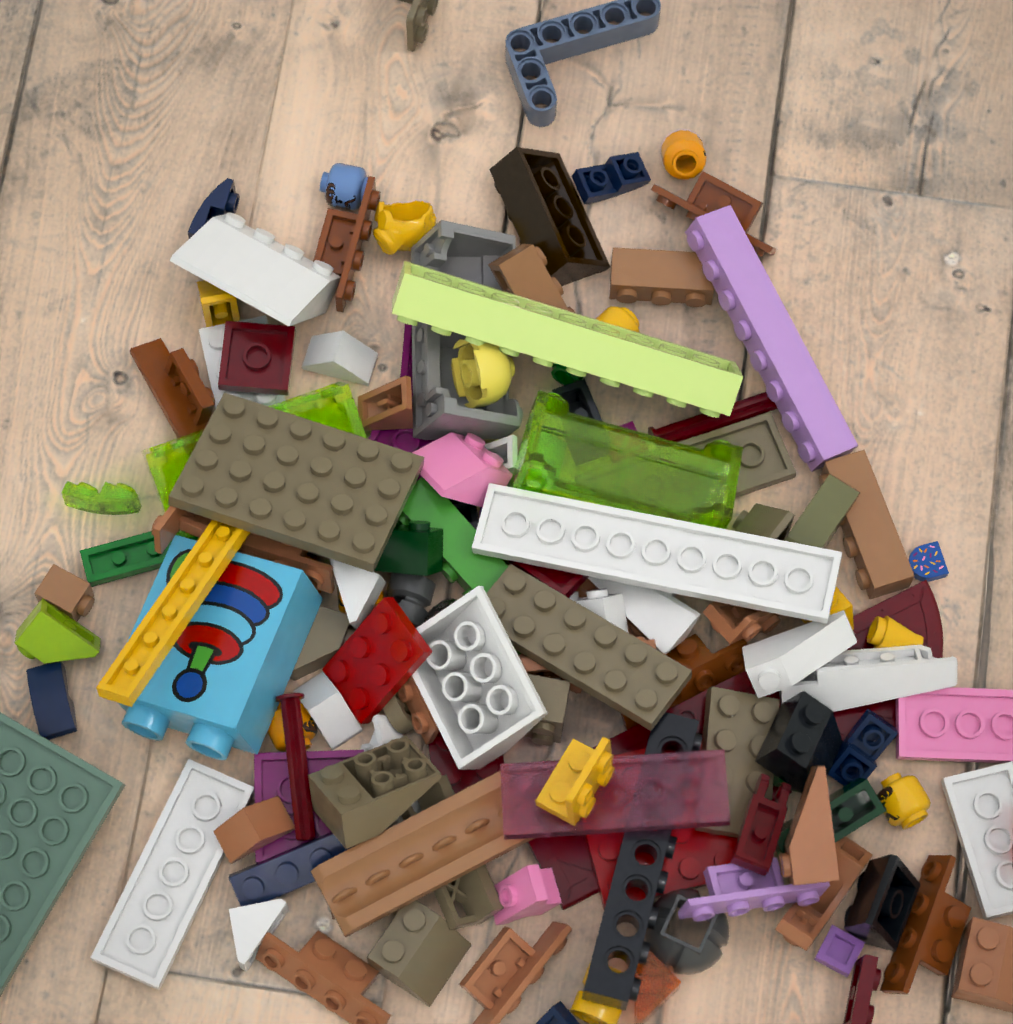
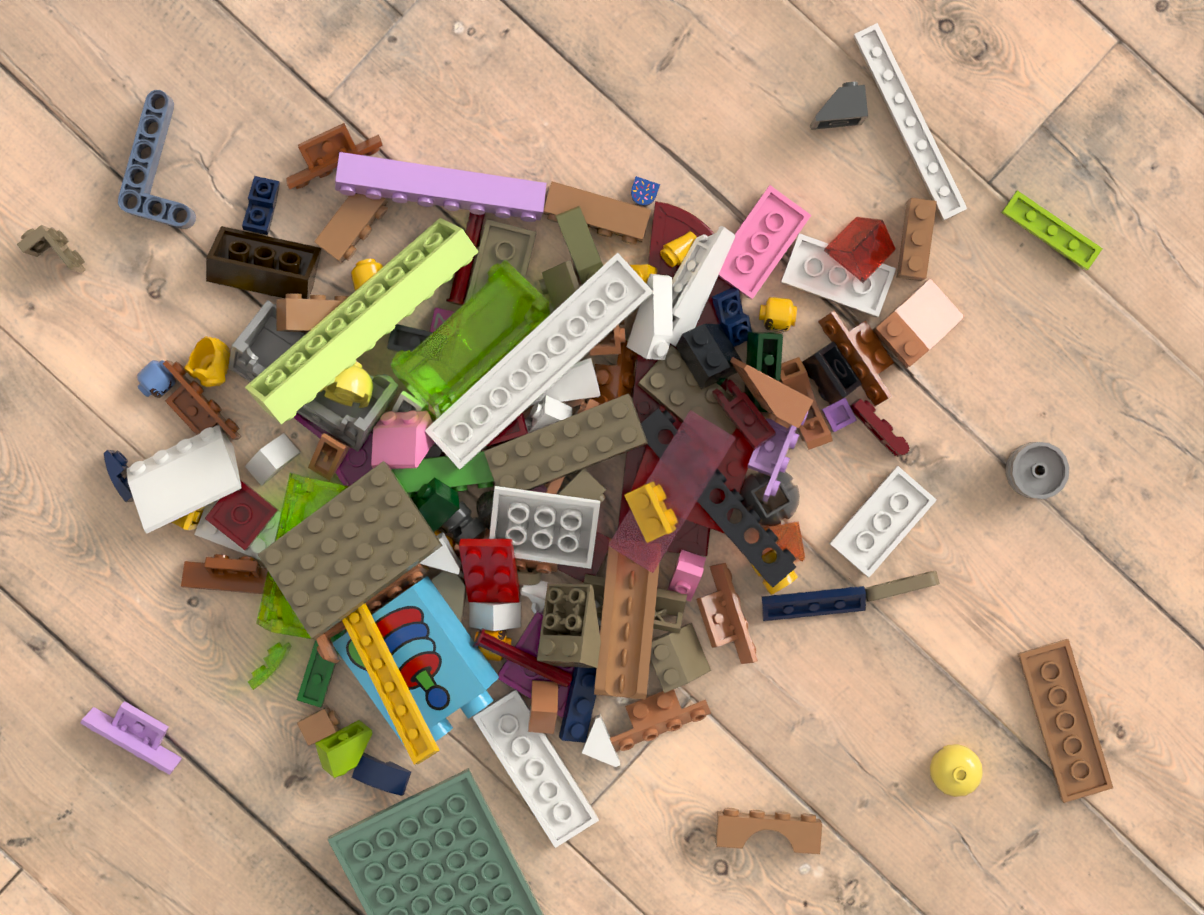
camera: 50 degrees left, 20 degrees up
(683, 155) = (278, 150): light orange head -> none

